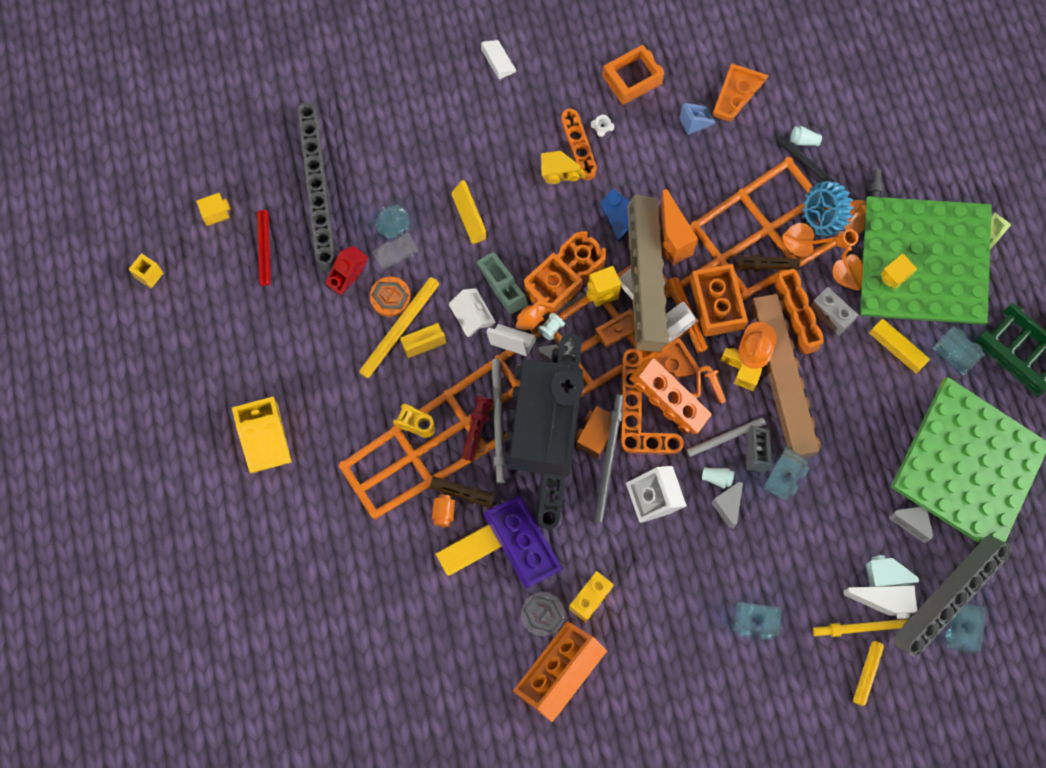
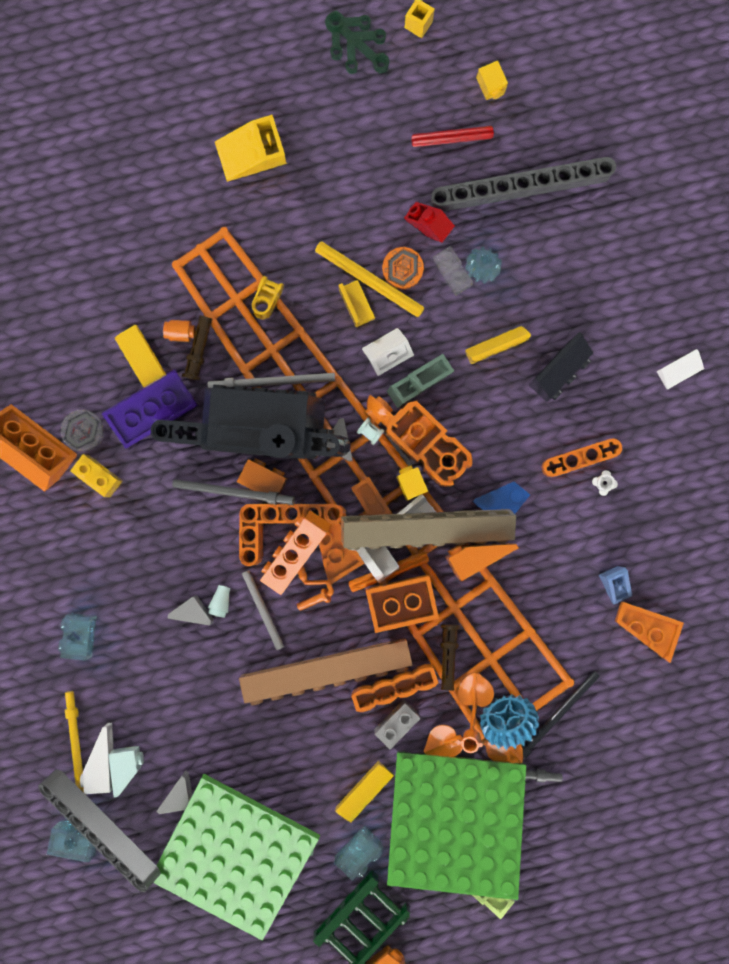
camera: 85 degrees right, 15 degrees up
(159, 335) = (355, 39): none -> clear green plant
(480, 418) = (273, 359): dark red pin -> none
(494, 156) = (562, 368): none -> black slope
(511, 339) = (357, 392): white panel -> none
(559, 167) = (551, 437): yellow slope -> none
(617, 85) = (655, 496): orange window -> none
(656, 493) = (200, 539): white slope -> none
(746, 376) = (334, 635): yellow brick -> none
(755, 462) = (241, 649): dark grey slope -> none
(757, 345) = (355, 643): orange piece -> none
(784, 486) = (220, 670): clear light blue brick -> none
(804, 136) = (598, 700): light aqua cone -> none
(868, 673) = (31, 743): yellow axle -> none
(898, 271) = (437, 794): yellow brick -> none

